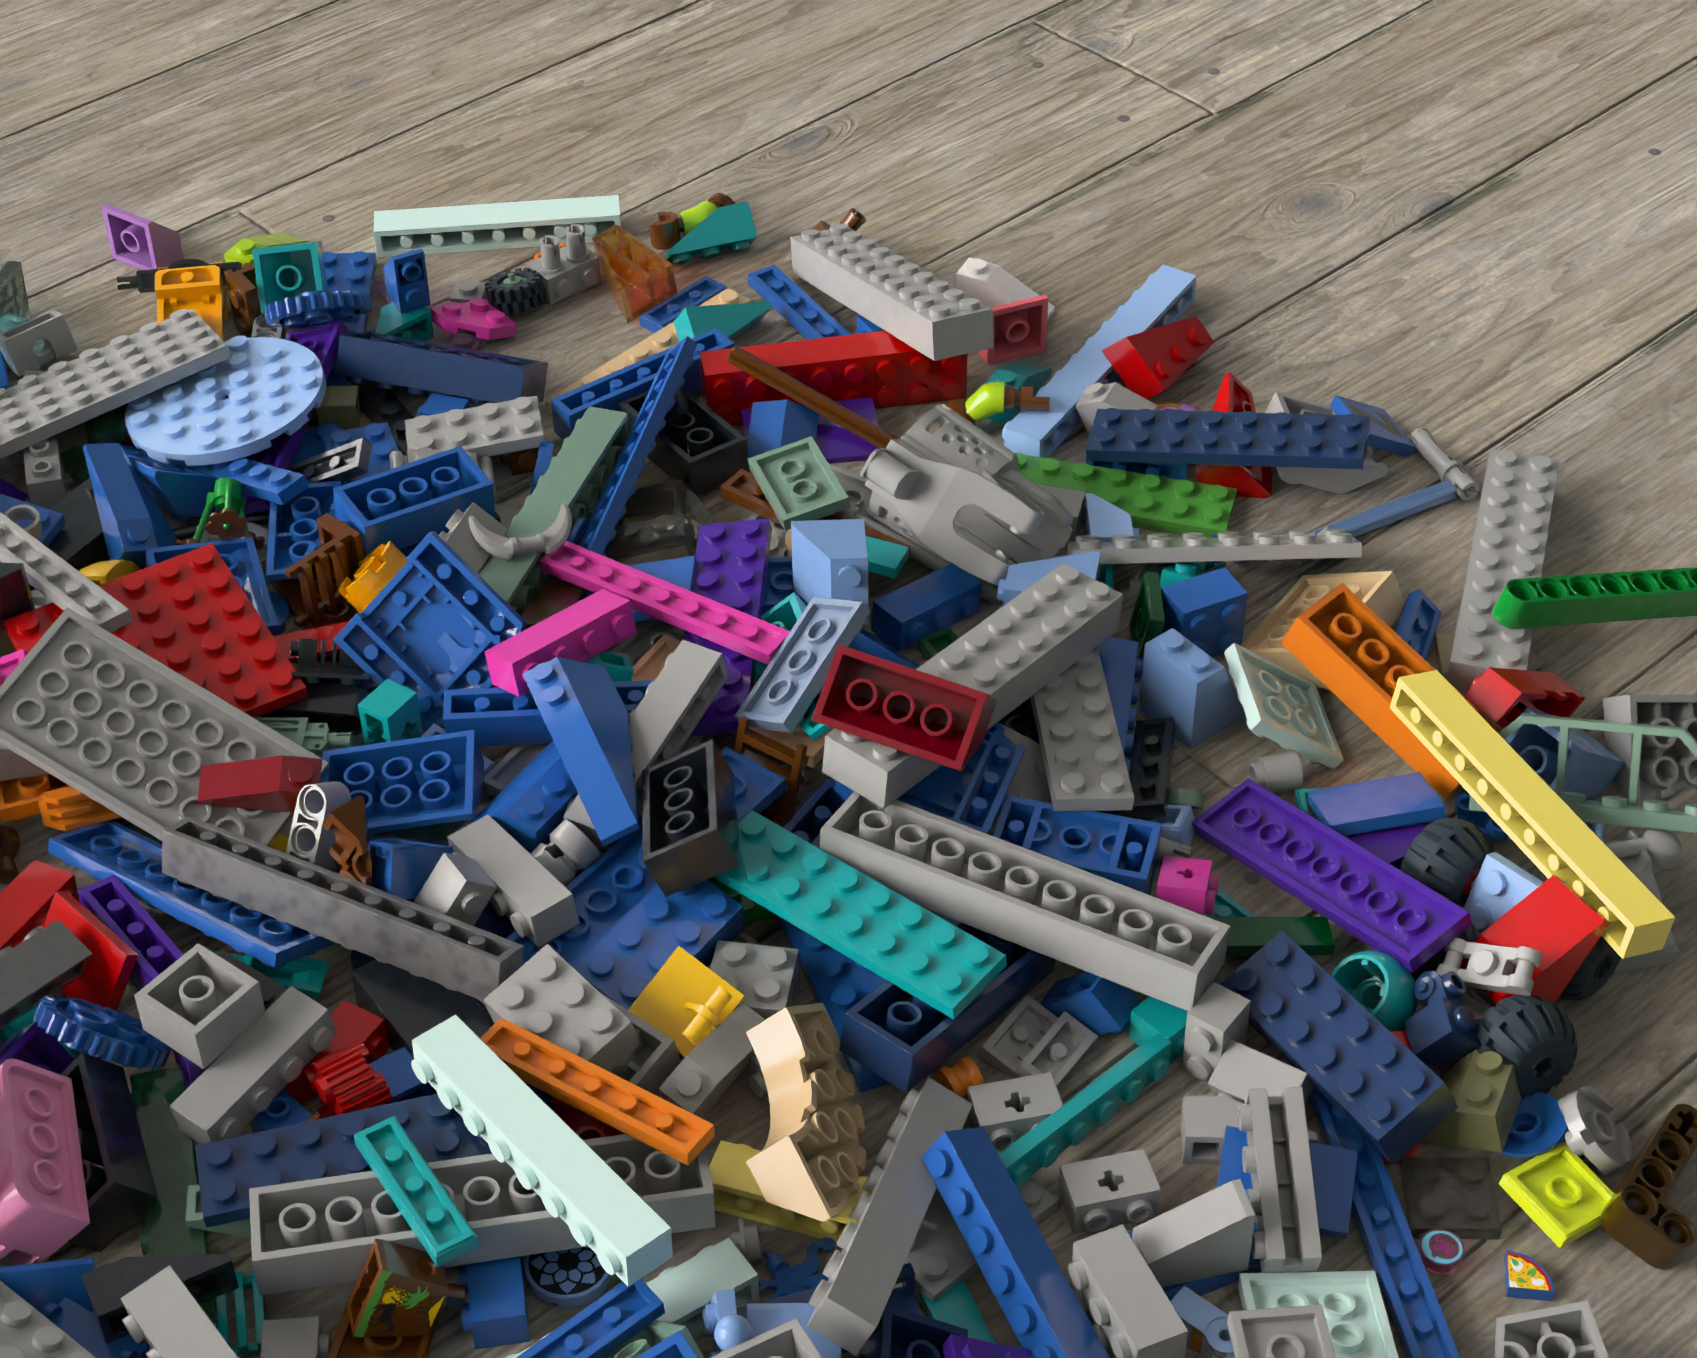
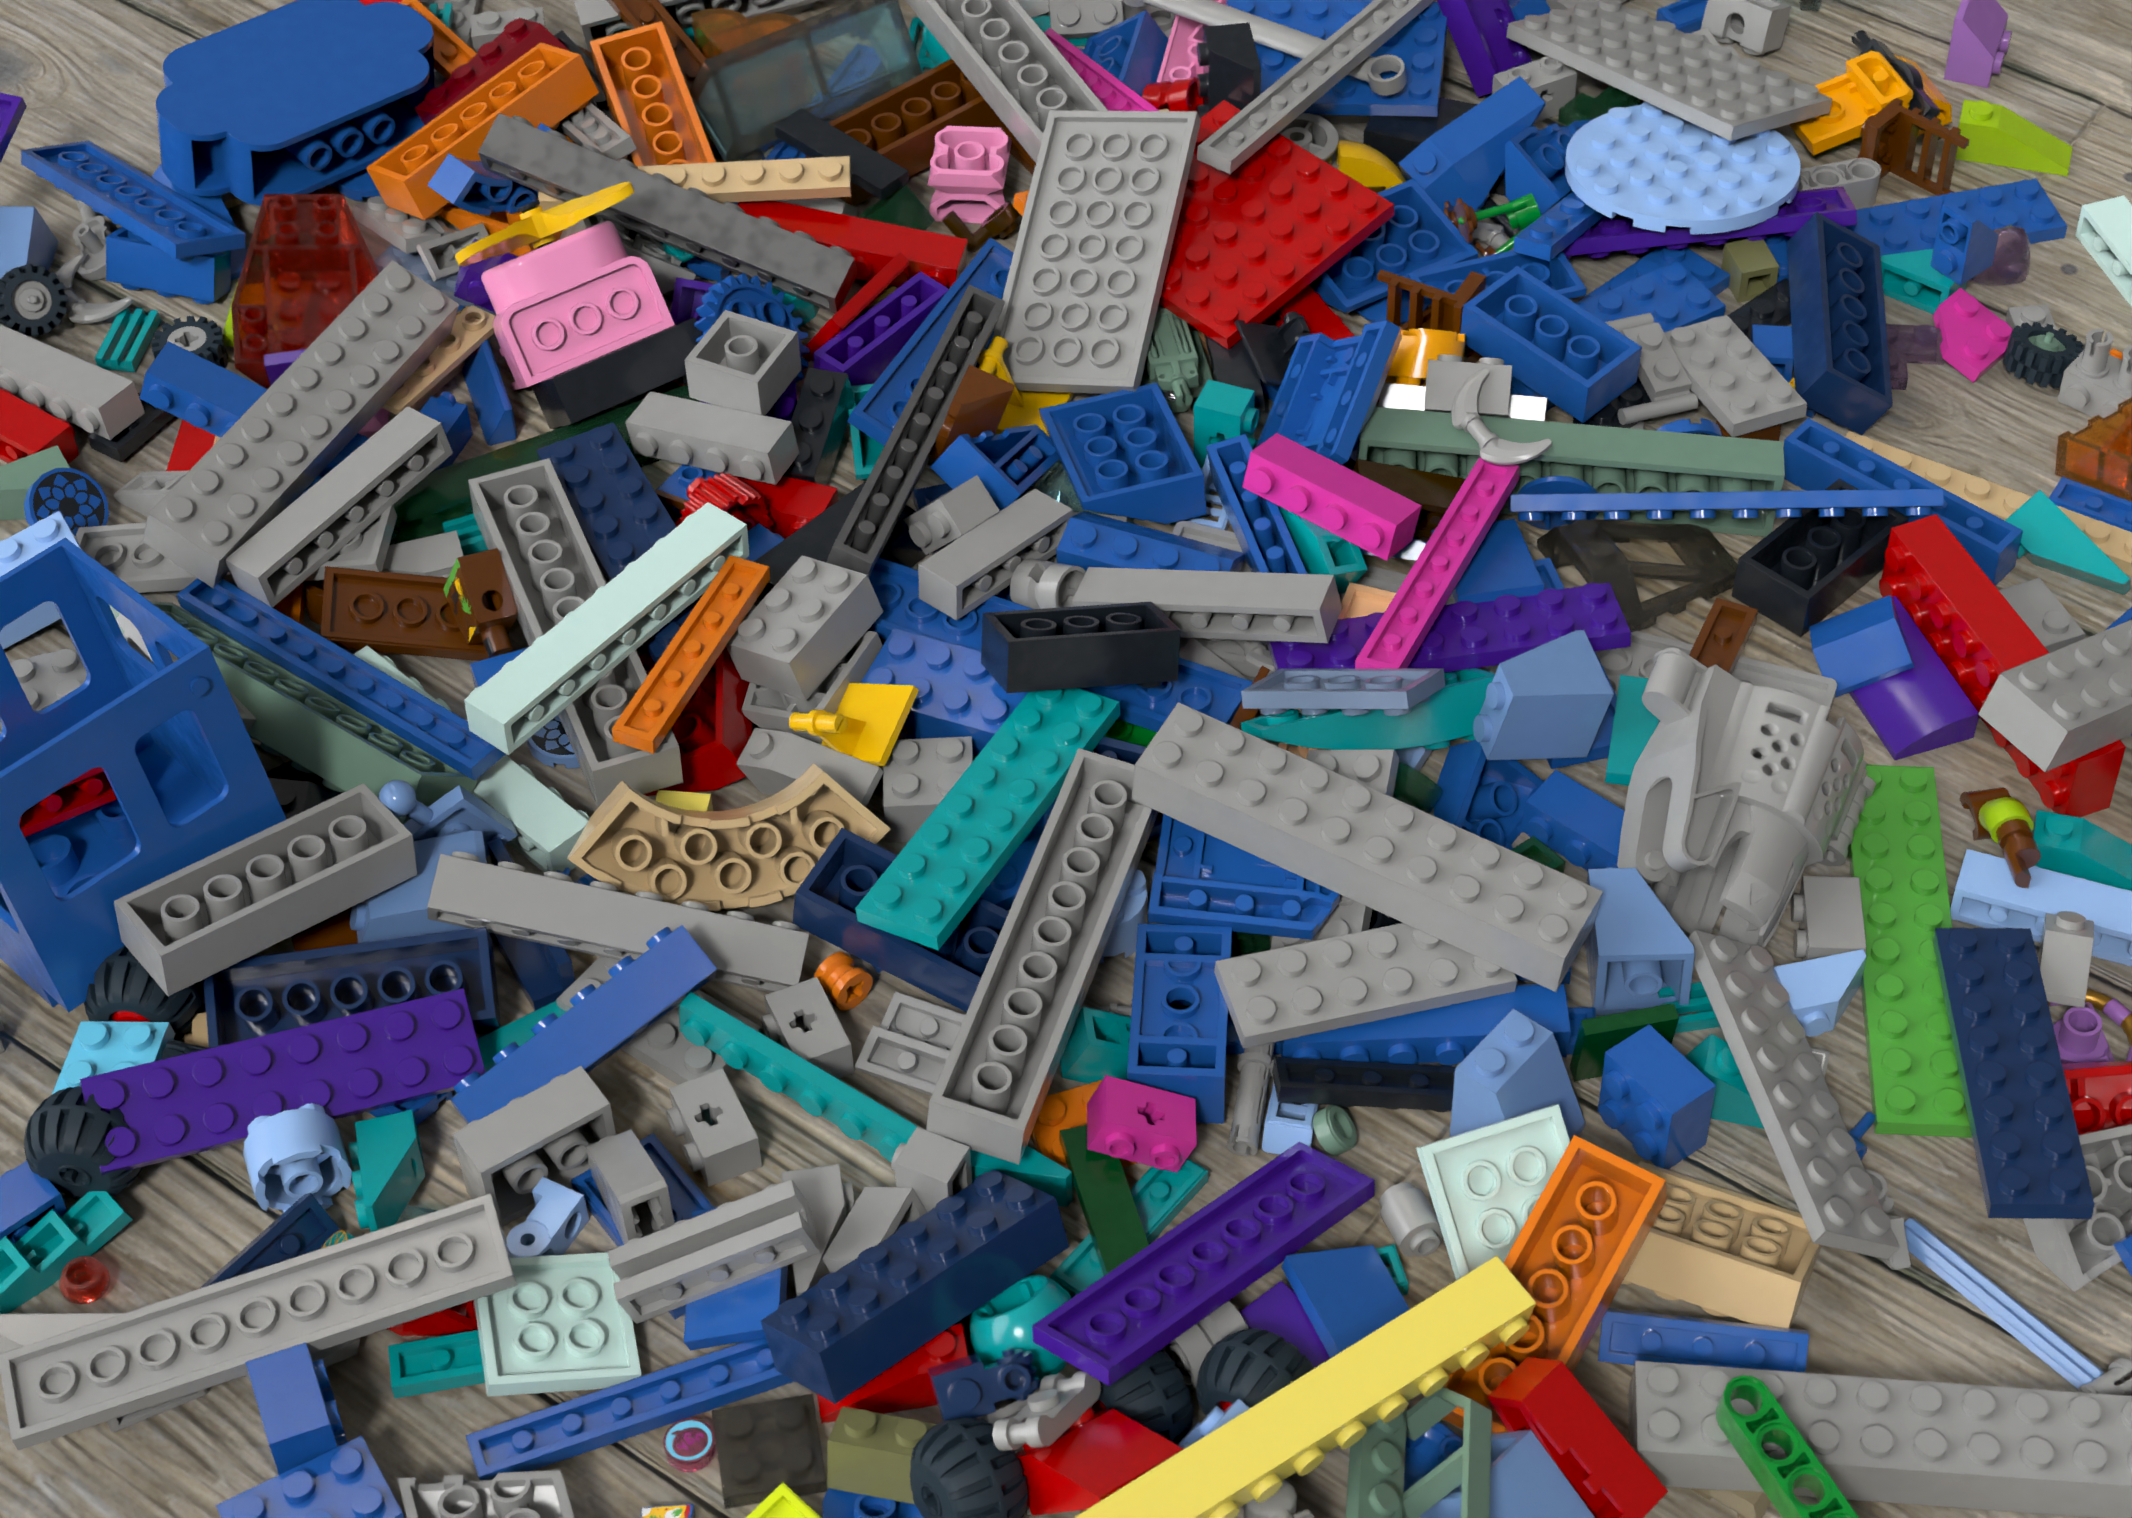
camera: 80 degrees right, 5 degrees up
(203, 1276) = (464, 432): black slope -> none
(258, 783) = (1074, 348): dark red slope -> none
(288, 271) = (1922, 154): teal slope -> none
(308, 836) = (1035, 390): light grey beam -> none
(318, 308) = (1866, 187): blue gear -> none
(336, 464) = (1603, 275): black plate -> none
(416, 1191) = (556, 561): teal tile -> none
(592, 739) = (1200, 526): blue wedge -> none
(798, 482) = (1743, 643): sand green plate -> none
(809, 397) = (1911, 649): reddish brown axle -> none
(903, 708) = (1217, 748): dark red slope -> none

